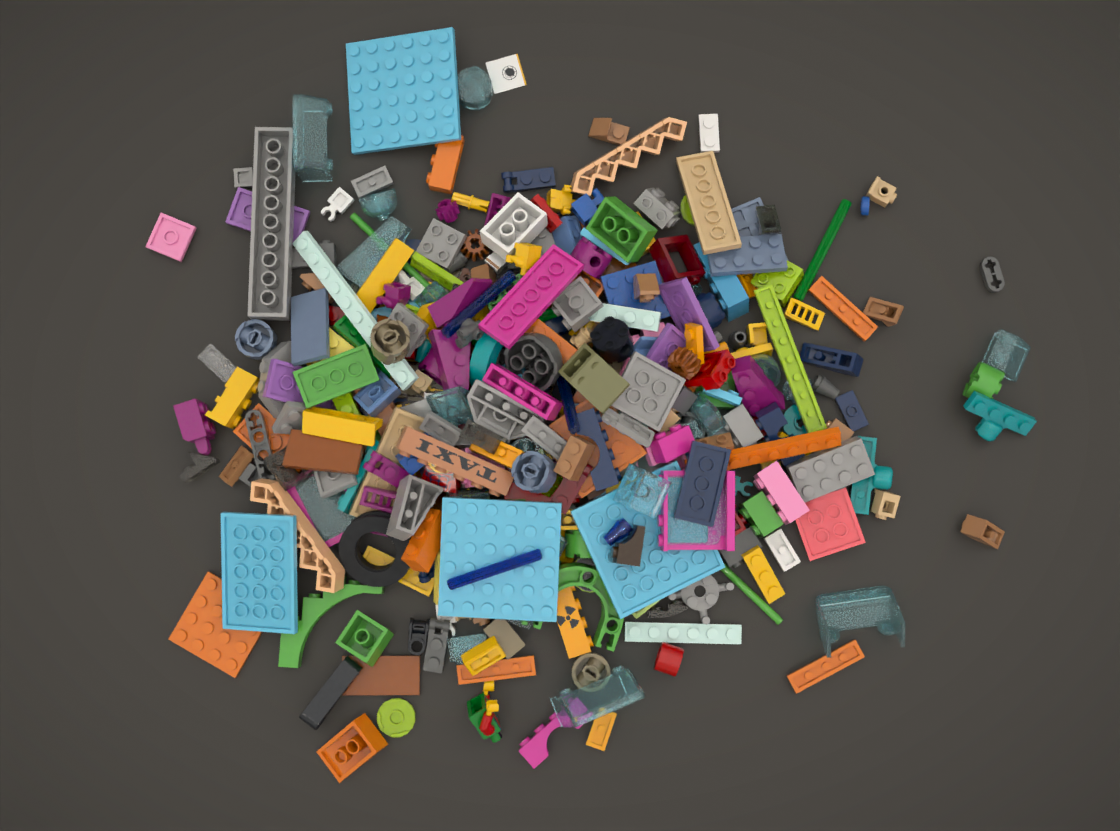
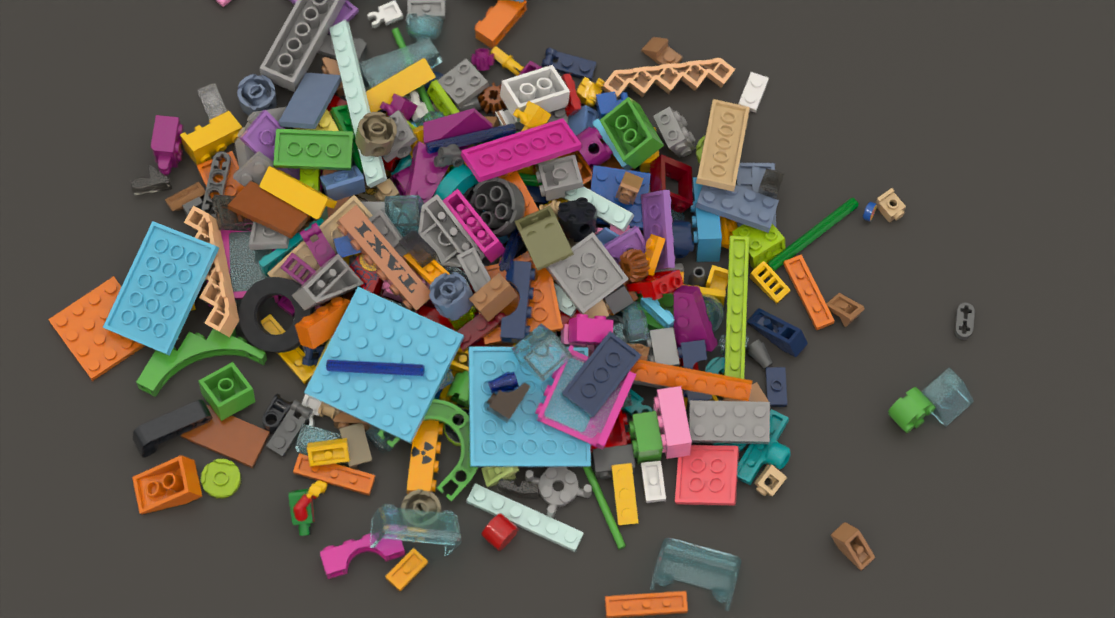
camera: 20 degrees right, 15 degrees down
(629, 427) = (556, 294): light grey hinge -> none
(997, 417) = (911, 444): teal plate -> none

